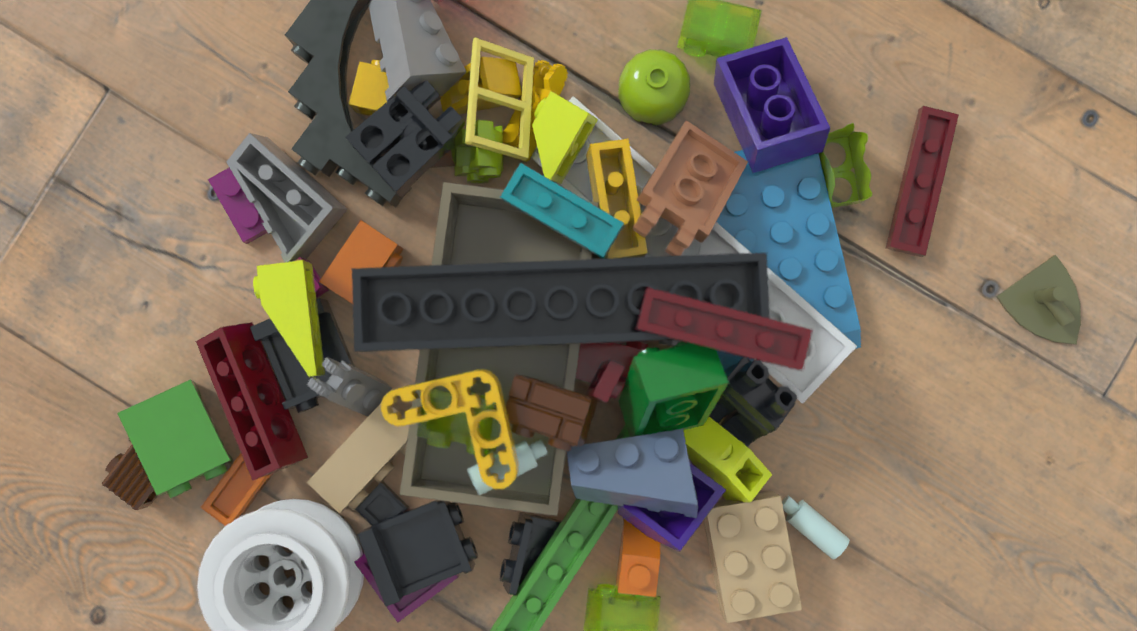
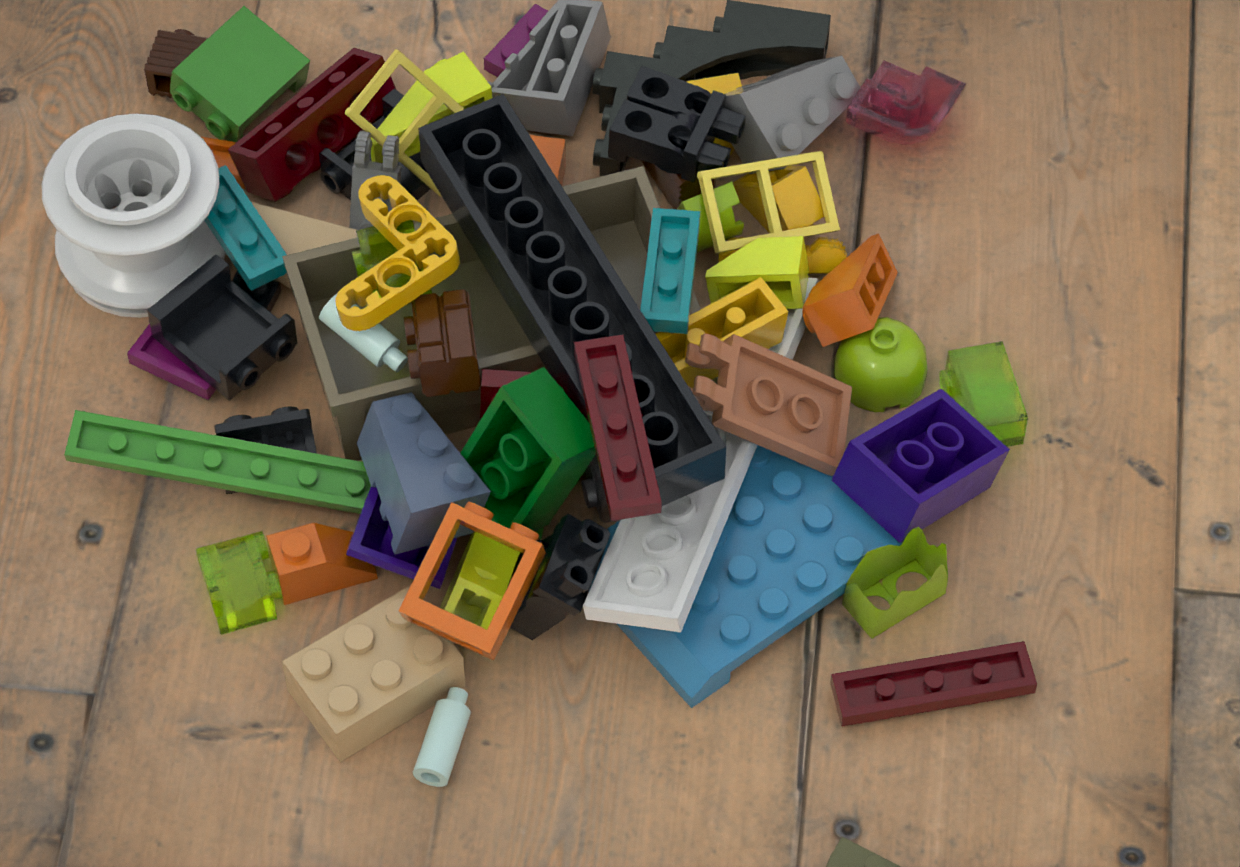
camera: 65 degrees right, 30 degrees down
(301, 309) = (440, 97): none -> light yellow window
(341, 502) = (244, 234): none -> teal plate
(601, 80) = (851, 294): none -> orange slope
(773, 499) = (452, 627): none -> orange window

